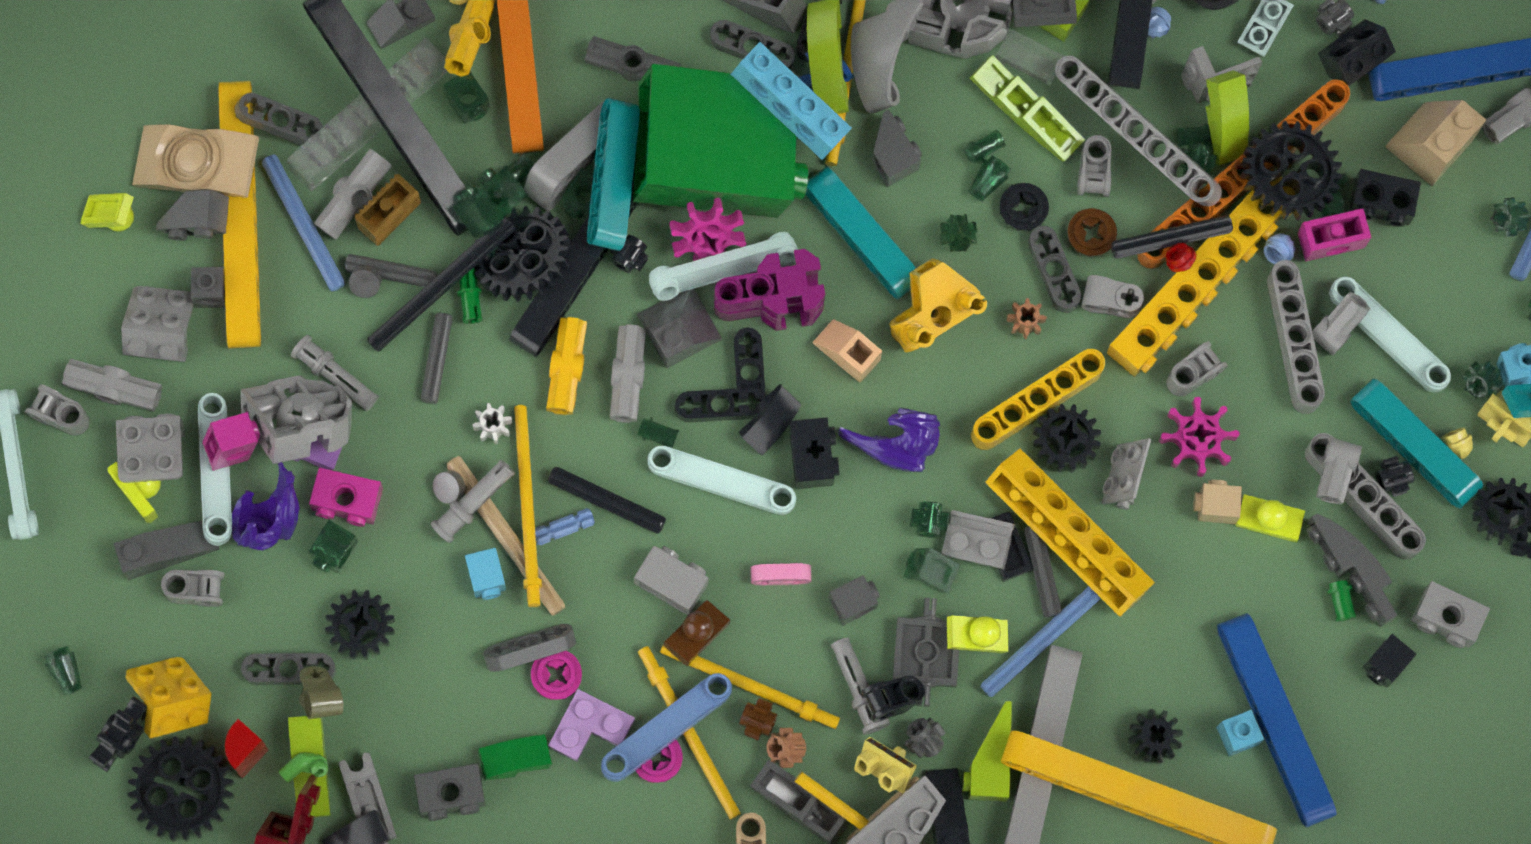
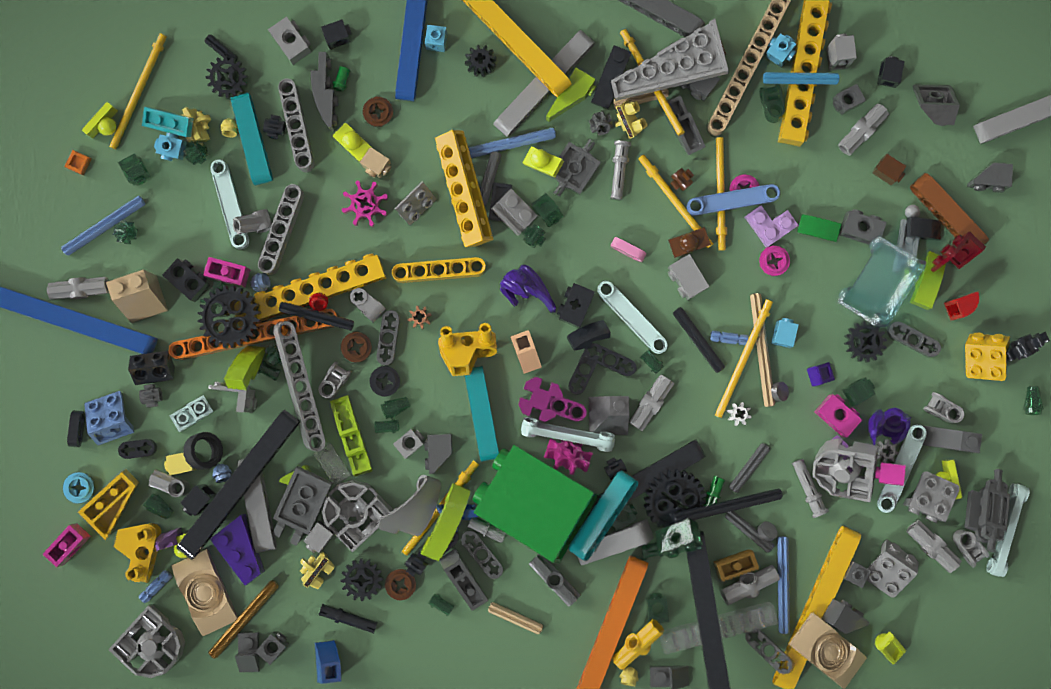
camera: 145 degrees left, 10 degrees up
(57, 468) = (989, 511): none -> dark grey piece
(193, 762) = (1014, 292): black gear -> none
(259, 480) = (887, 446): none -> light grey gear
(304, 762) = (930, 276): bright green arm -> none
(319, 693) = (909, 312): olive piece -> none
(380, 715) = (883, 283): none -> clear light blue windscreen
(400, 546) = (820, 374): none -> dark purple slope
(462, 511) = (779, 373): light grey pin -> none
(529, 647) = (786, 287): dark grey beam -> none
(566, 366) = (682, 424): yellow piece -> none
(786, 747) = (675, 156): nougat gear -> none
(790, 100) = (485, 500): medium azure brick -> none
(854, 599) = (597, 215): dark grey brick -> none
(893, 697) = (610, 149): black piece -> none
(943, 127) = (403, 449): none -> light grey brick
(958, 233) = (429, 384): clear green gear -> none
(1054, 436) = (441, 234): black gear -> none
(1159, 22) = (248, 444): light blue plate -> none
(1198, 366) = (341, 241): light grey piece -> none
(1261, 567) = (369, 108): none -> reddish brown gear
(1339, 463) = (300, 144): light grey piece -> none

